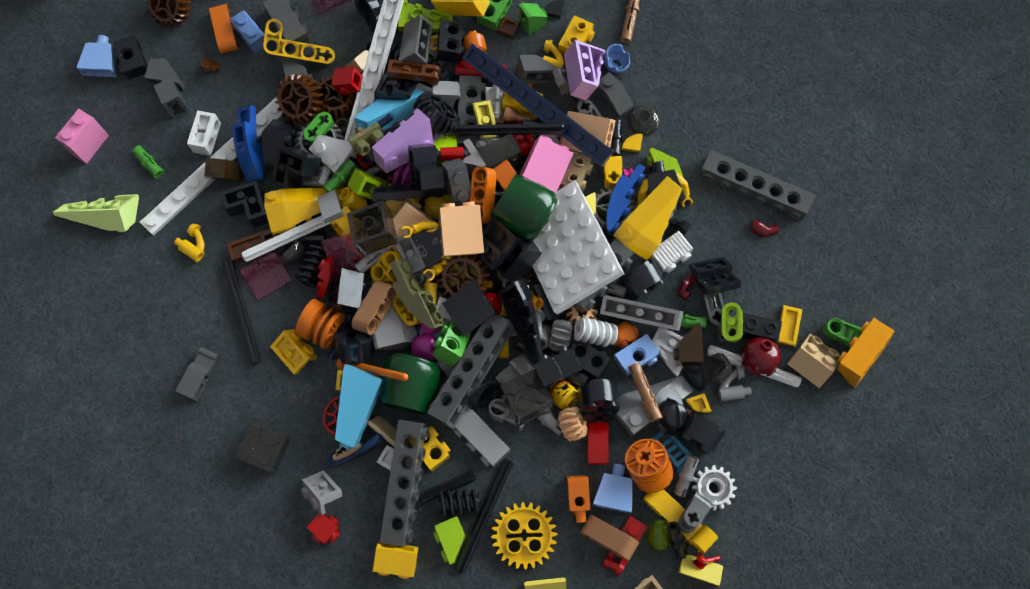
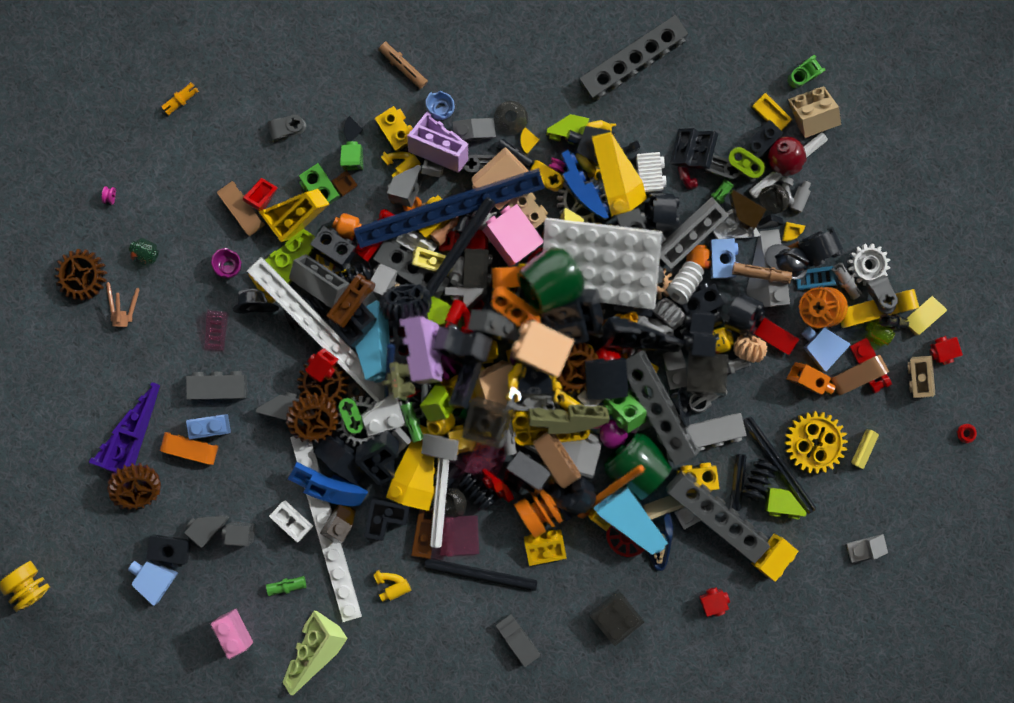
camera: 60 degrees left, 15 degrees up
(209, 64) = (219, 480): reddish brown piece -> none
(299, 46) = (277, 371): yellow beam -> none
(320, 490) = (683, 589): light grey bracket -> none
(359, 62) = (304, 347): tan slope -> none
(701, 562) = (920, 312): red hand -> none
(762, 230) = (675, 80): dark red arm -> none
(864, 351) = (835, 67): light orange slope -> none

